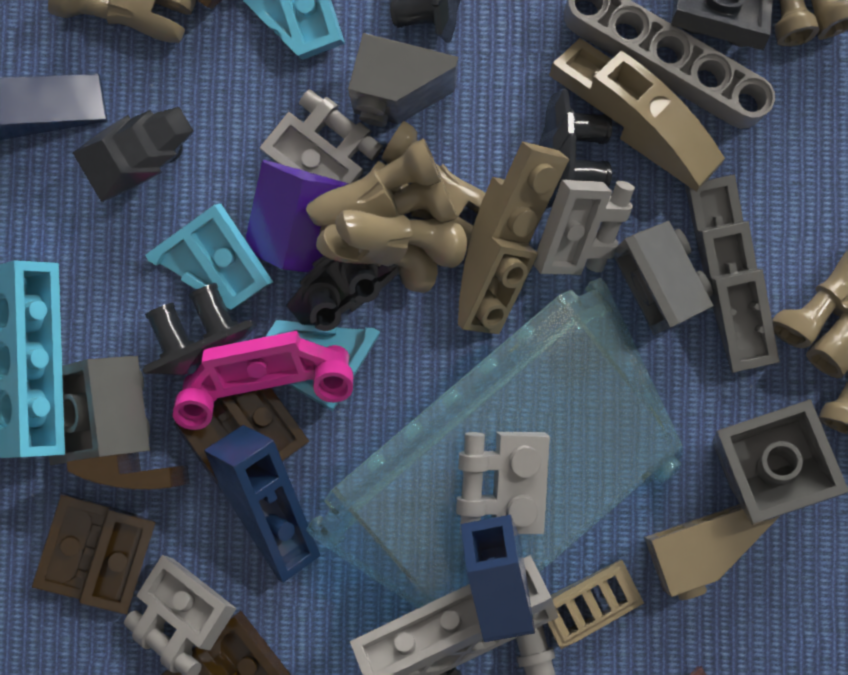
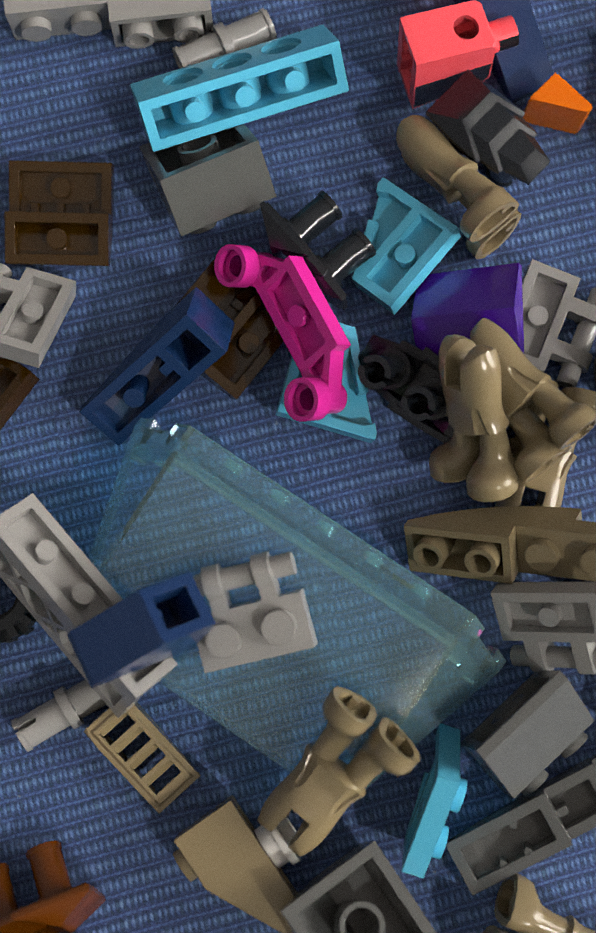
camera: 65 degrees right, 5 degrees down
(44, 163) = (447, 42): none -> coral torso
(125, 81) = (557, 106): none -> orange slope
(125, 472) = (152, 217): dark brown slope -> none
(141, 207) = (490, 208): none -> dark tan piece
(662, 457) = (323, 783): none -> dark tan piece
(693, 366) = (438, 794): none -> medium azure wing
(693, 508) = (277, 842): none -> white plate

